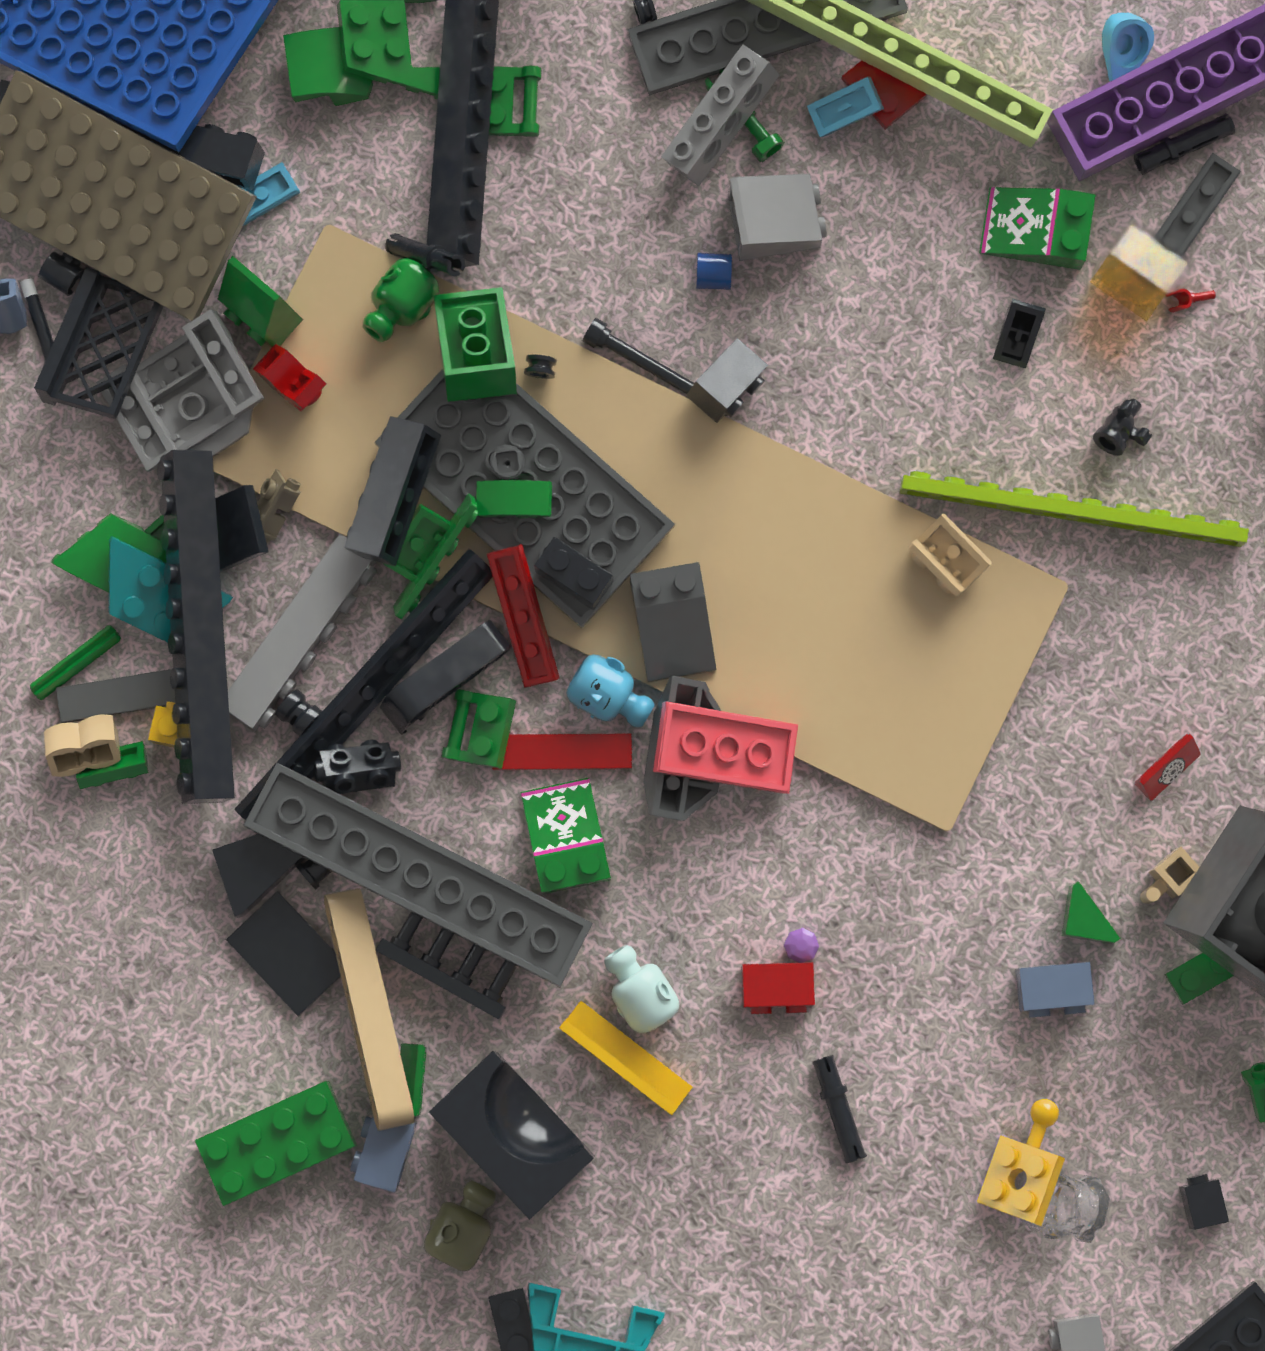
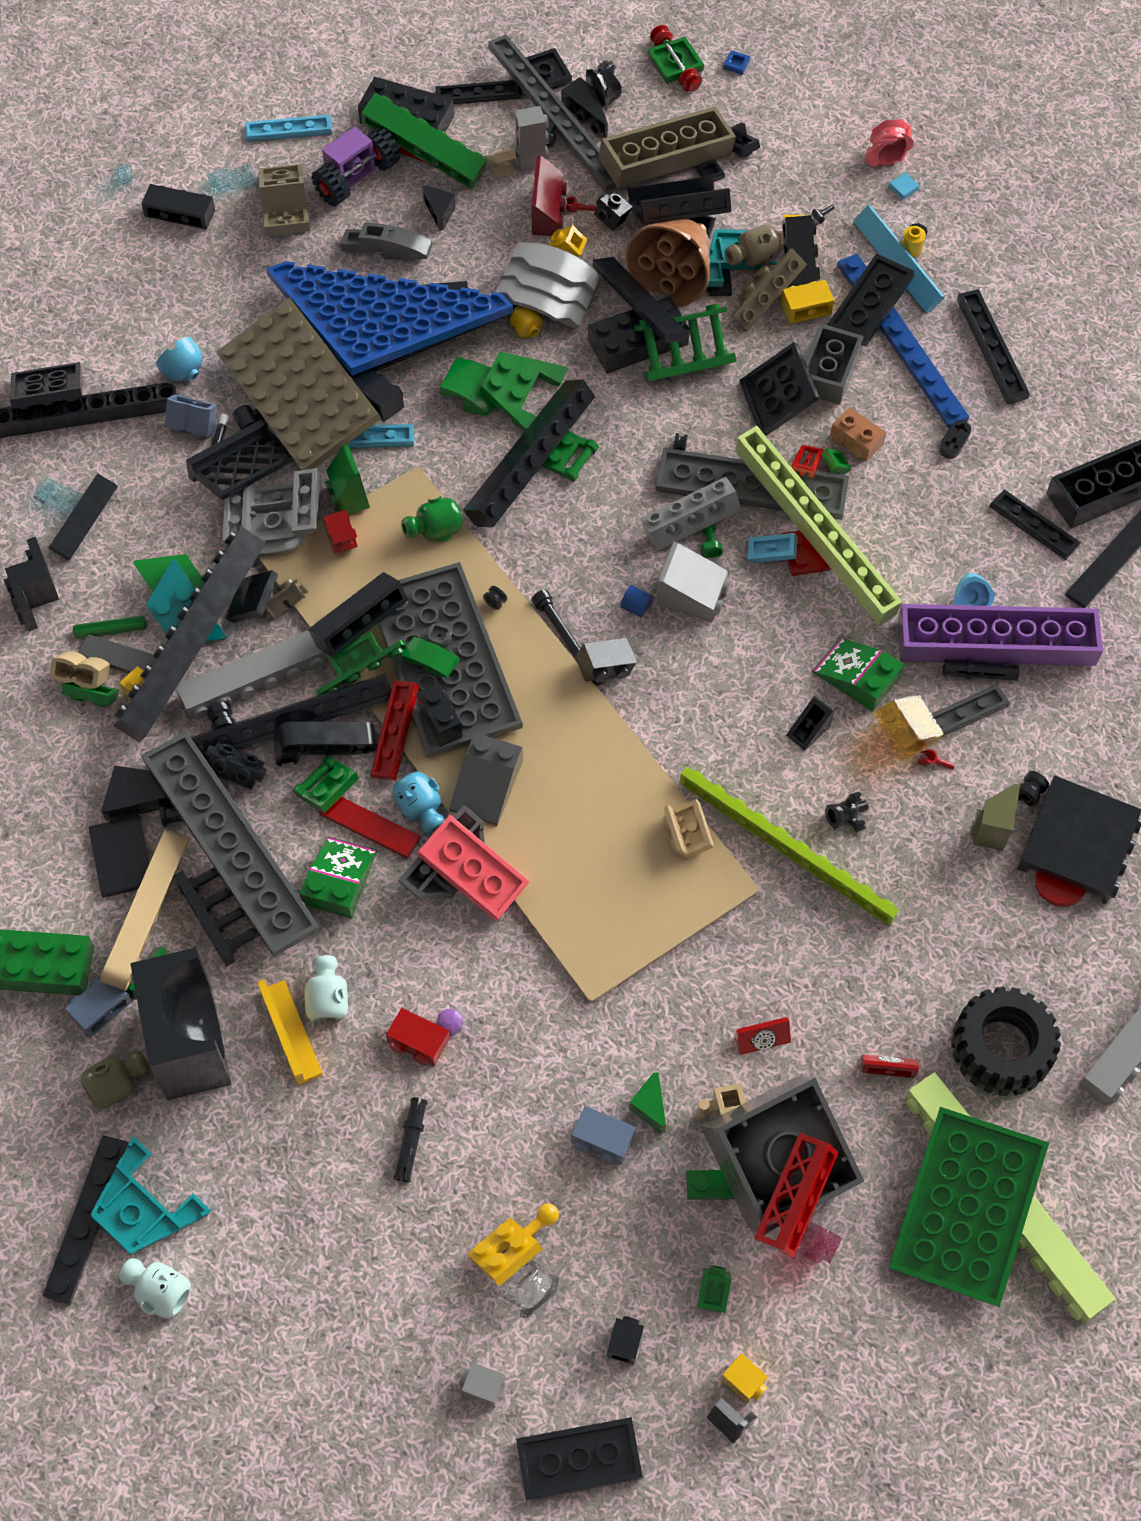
camera: 30 degrees right, 20 degrees down
(432, 256) = (466, 503): black pin -> none
(475, 344) = (460, 562): green slope -> none

